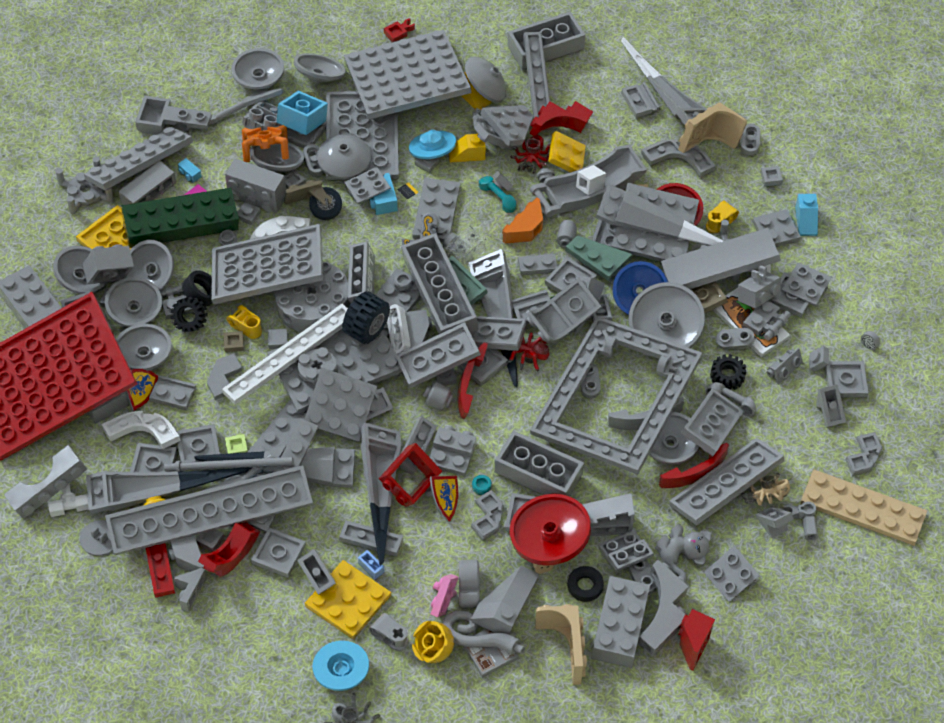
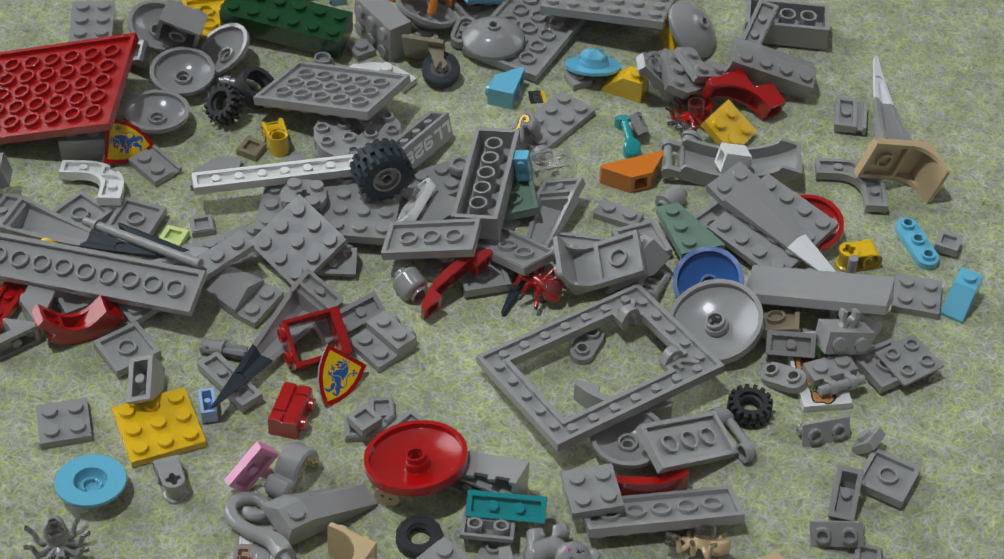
camera: 30 degrees right, 10 degrees down
(249, 425) = (202, 226): none -> light grey tile
(279, 632) = (63, 423): none -> light grey plate
(349, 515) = (224, 348): none -> light grey axle
(367, 185) = (494, 69): light grey hinge -> none
(432, 538) = (291, 411): none -> red brick
(433, 642) = (203, 508): yellow cylinder -> none
(455, 259) = (522, 165): none -> medium azure piece
(481, 484) = (388, 387): teal tile -> none
(489, 518) = (364, 420): none -> light grey plate
(518, 115) = (695, 67): none -> light grey plate
(538, 466) = (458, 395): light grey brick -> none
(565, 86) = (767, 65): none -> light grey slope
(633, 532) = (506, 506): none -> teal plate
(678, 491) = (592, 491): none -> light grey plate
(726, 311) = (790, 343): none -> light grey plate
(742, 181) = (916, 243): none -> medium azure plate
(750, 143) = (949, 200): light grey plate -> none
(843, 437) = (837, 533): none -> light grey hinge
(870, 340) = (947, 451): tile -> none

